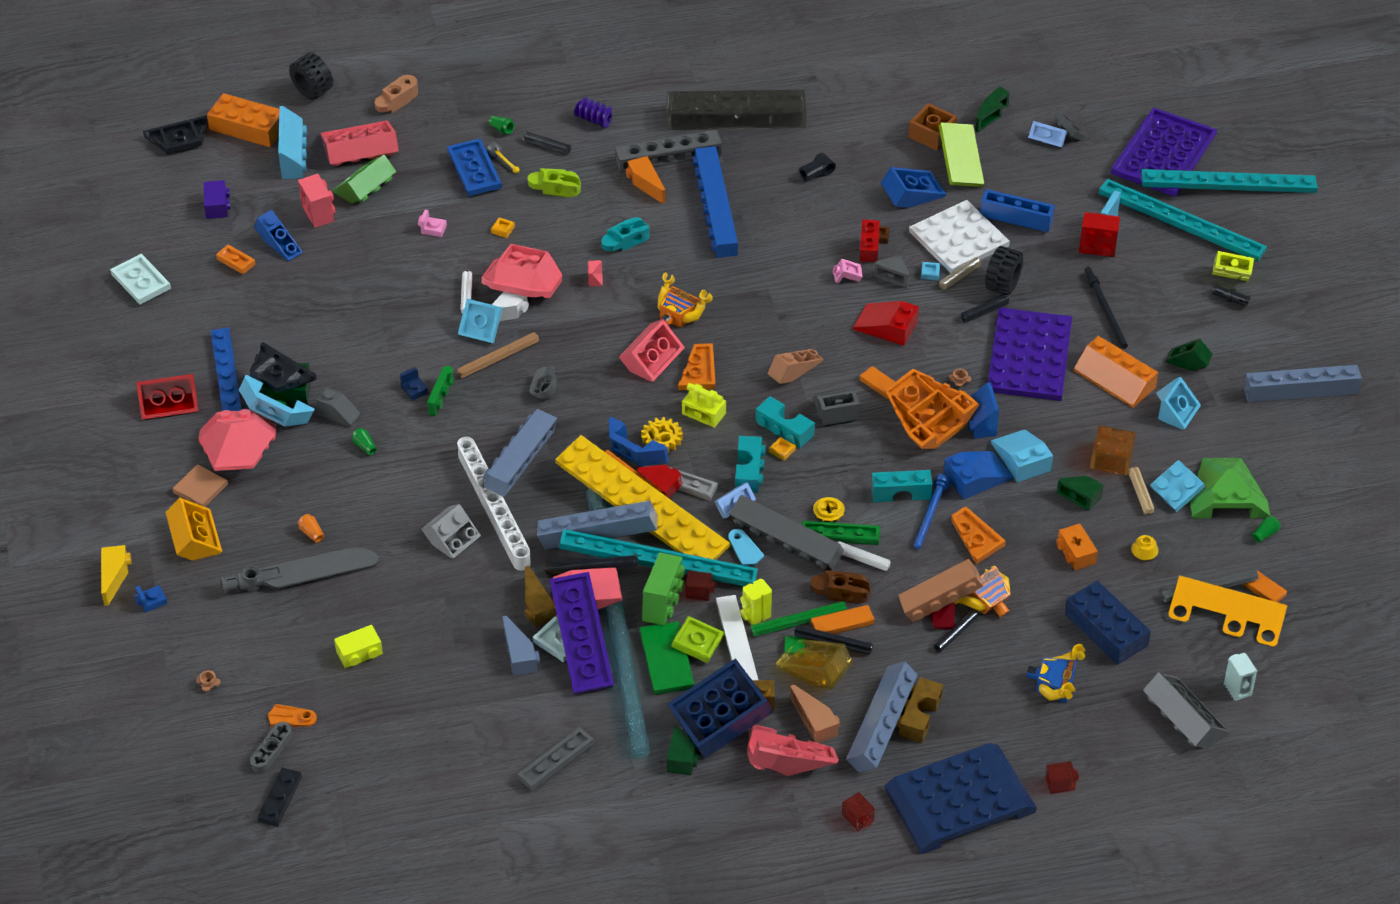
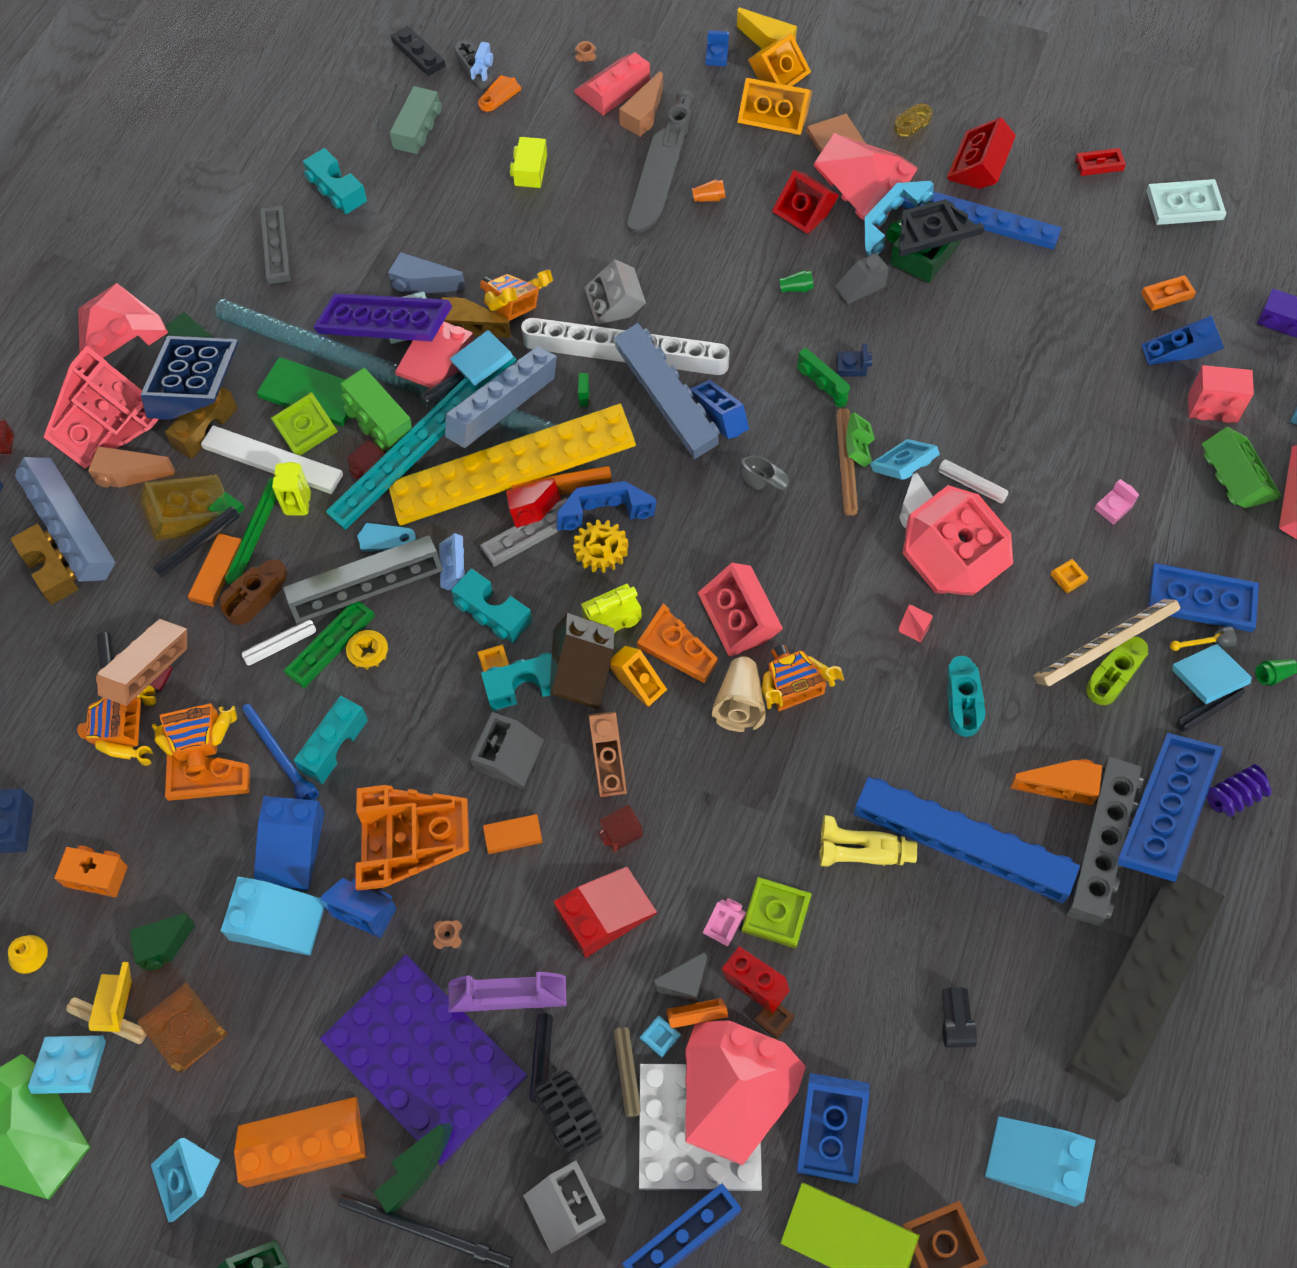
camera: 125 degrees right, 15 degrees up
(126, 342) = (1101, 165): none -> red tile
(147, 549) = (780, 62): none -> light orange slope
(153, 448) = (913, 119): none -> clear yellow plate
(232, 641) = (615, 83): none -> coral slope
(248, 607) = (641, 109): none -> nougat slope
(276, 725) = (483, 60): none -> light blue plate
(283, 469) = (804, 201): none -> red slope
(365, 744) = (415, 120): none -> sand green brick
(463, 772) = (324, 172): none -> teal arch
(474, 353) = (857, 439): none -> bright green slope
(500, 580) = (511, 295): none -> torso
(507, 425) = (721, 408): none -> blue slope
(526, 146) = (1211, 674): none -> medium azure tile
(543, 188) = (1107, 642): none -> tan tile
(548, 505) = (583, 390): none -> green tile
(579, 543) = (481, 358): none -> medium azure tile
(629, 127) = (1170, 807): none -> blue plate
(709, 321) = (740, 697): none -> tan cone
(714, 799) = (115, 319): none -> coral wedge
(735, 377) = (637, 675): none -> light orange slope
(750, 231) = (879, 848): none -> light yellow piece
(750, 395) = (580, 660): none -> dark brown slope
(821, 257) = (776, 912): none -> lime tile
(836, 335) = (620, 828): none -> clear red brick
(859, 113) = (1041, 1160): none -> medium azure slope
(911, 259) = (696, 1013): none -> orange tile
(932, 223) = (736, 1087): none -> coral wedge
(957, 542) = (193, 733): none -> torso
(965, 318) = (507, 993): none -> medium lavender hose
(1044, 257) = (564, 1207): none -> light grey slope
(1083, 316) = (413, 1168): none -> dark green slope
(1129, 485) = (111, 1001): none -> yellow panel

